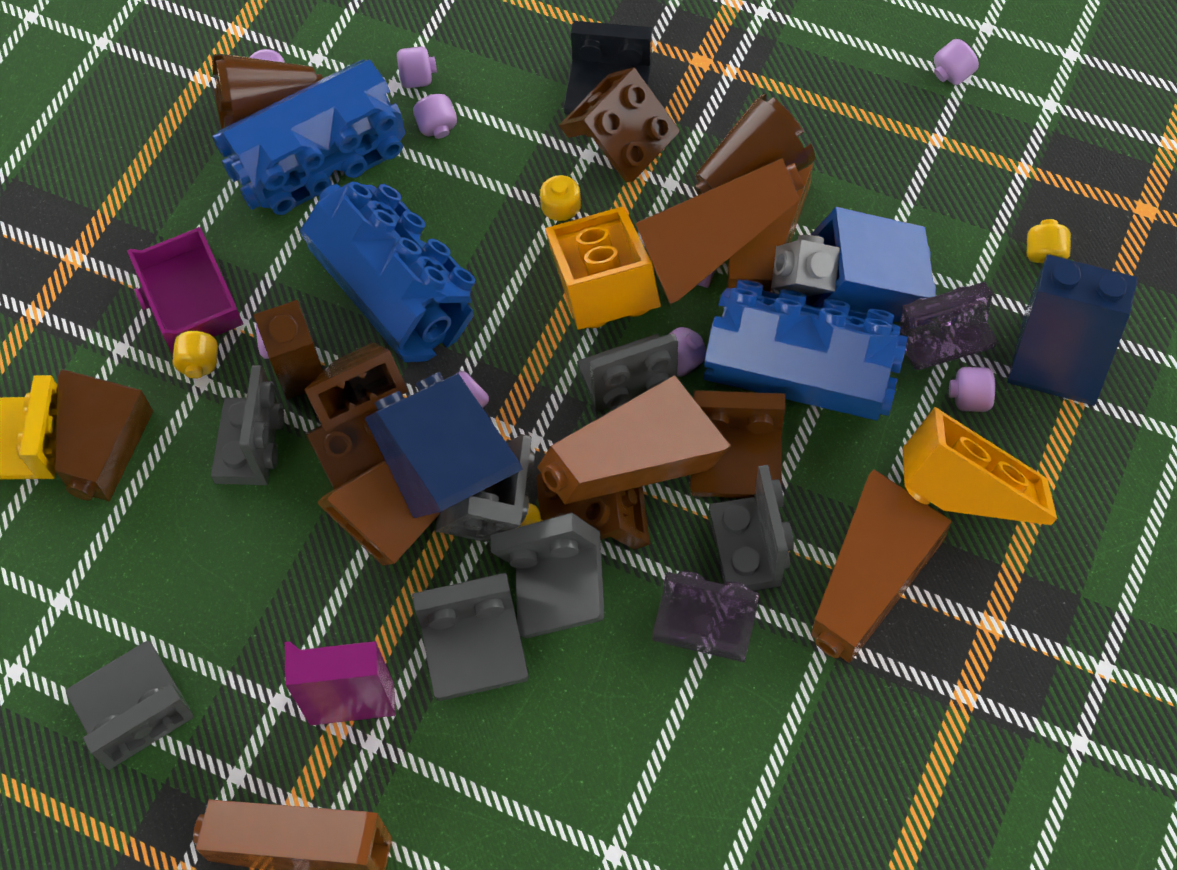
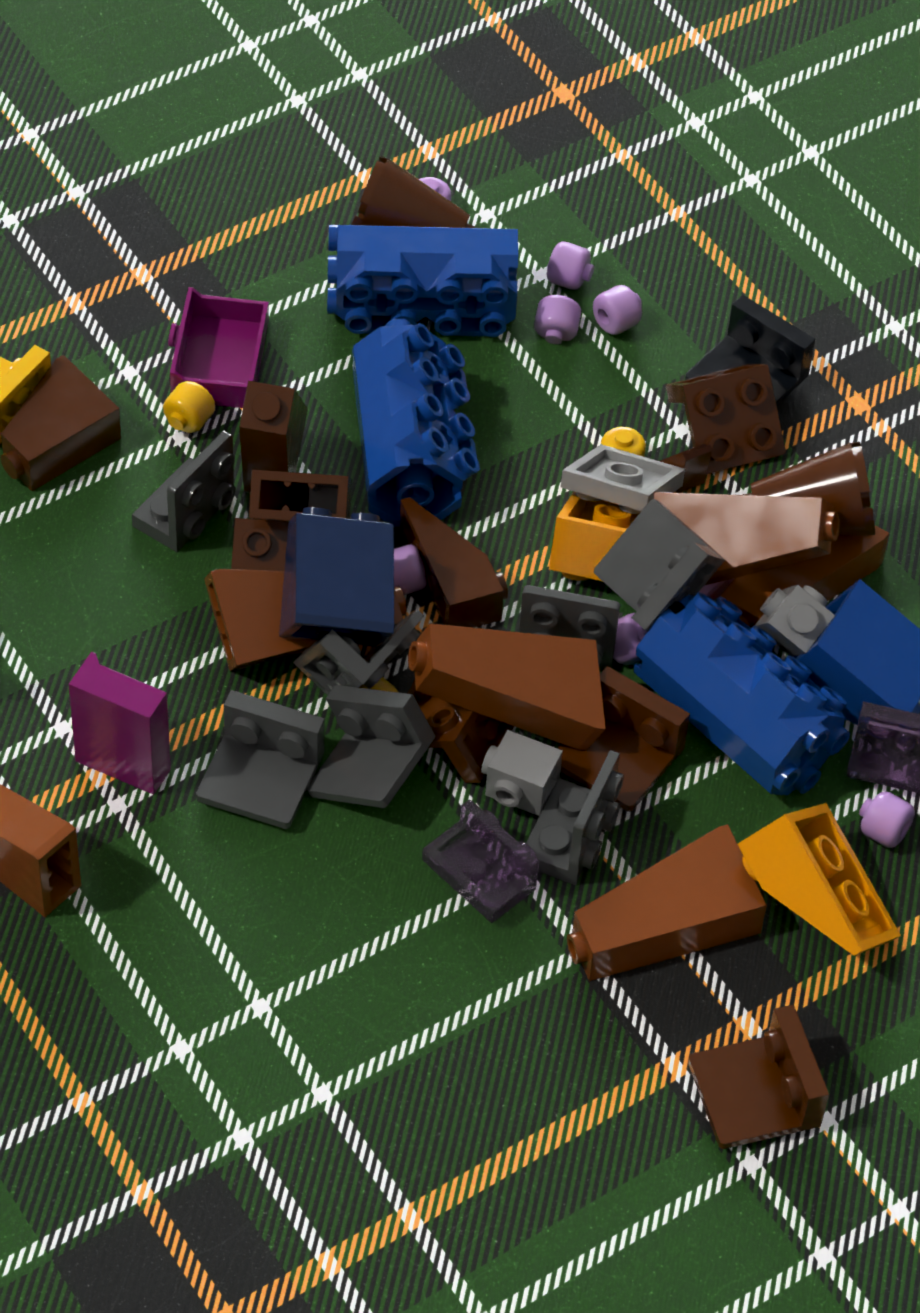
camera: 25 degrees right, 10 degrees down
(476, 83) = (617, 309): none -> lavender piece
(508, 373) = (456, 571): none -> reddish brown slope
(587, 223) = (620, 478): none -> light grey plate
(616, 186) = (695, 463): none -> reddish brown slope
(676, 283) = (657, 564): none -> dark grey bracket
(683, 519) = (521, 772): none -> light grey brick
(1048, 673) = (761, 1084): none -> reddish brown bracket

